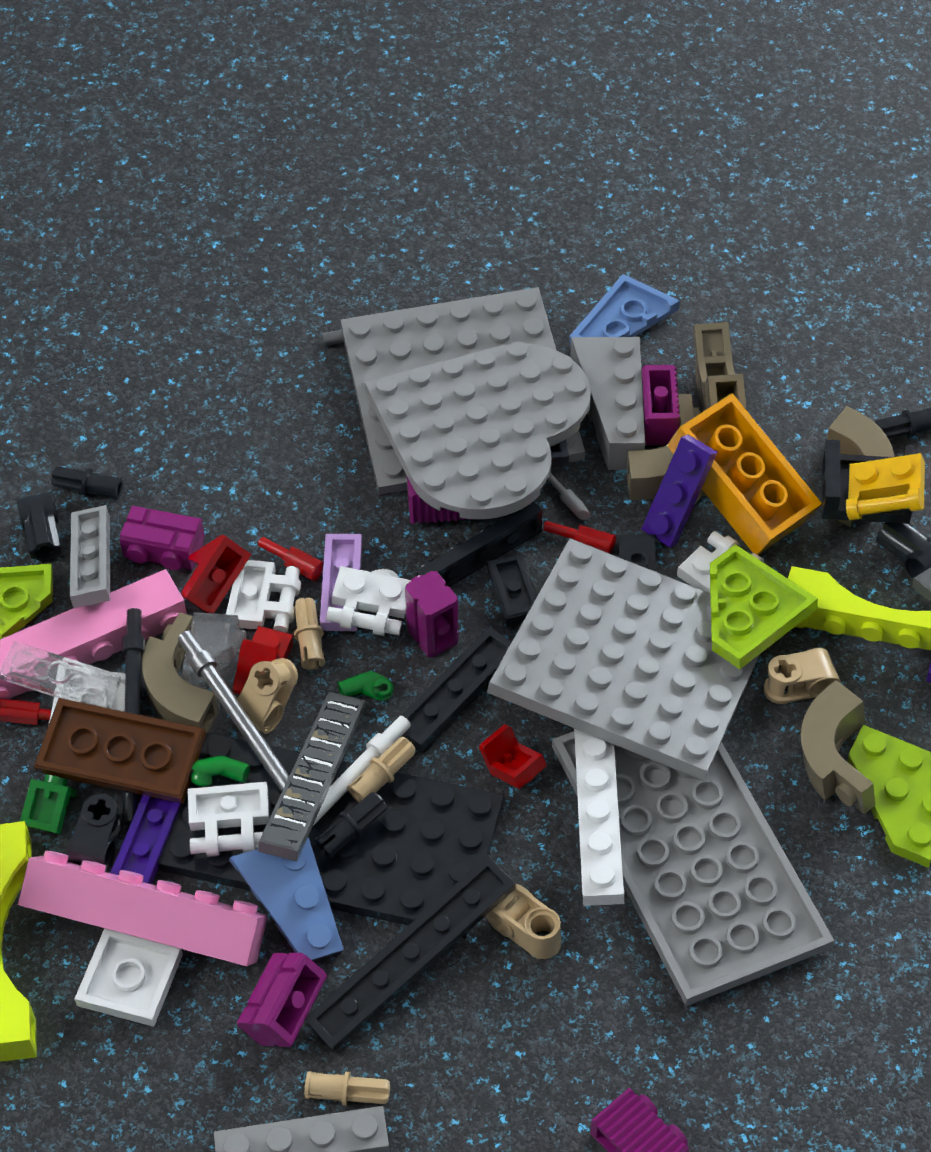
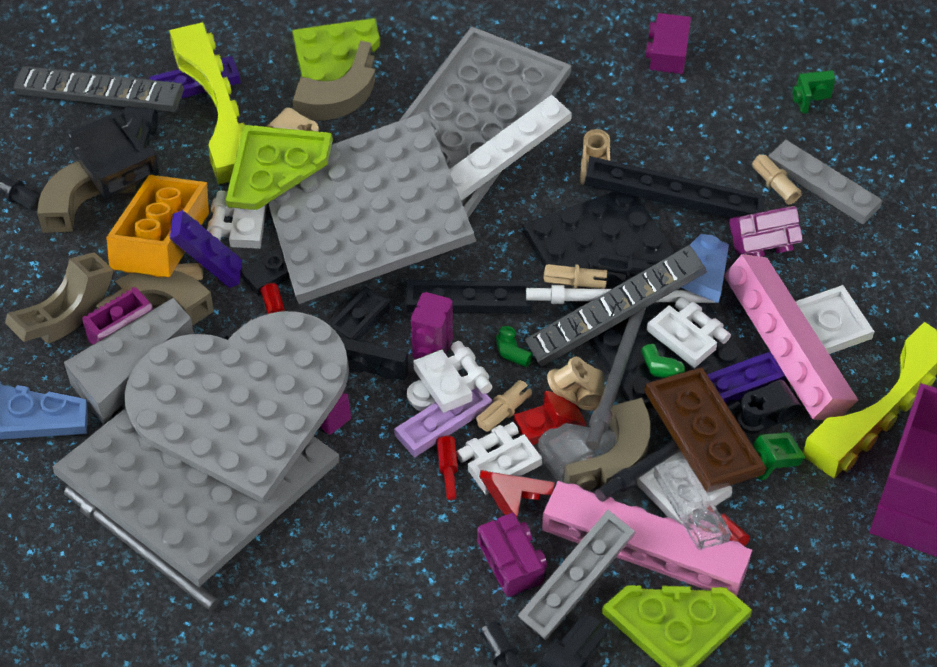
camera: 130 degrees left, 0 degrees up
(509, 759) = (495, 231): red bracket -> none
(882, 479) = (111, 132): yellow plate -> none

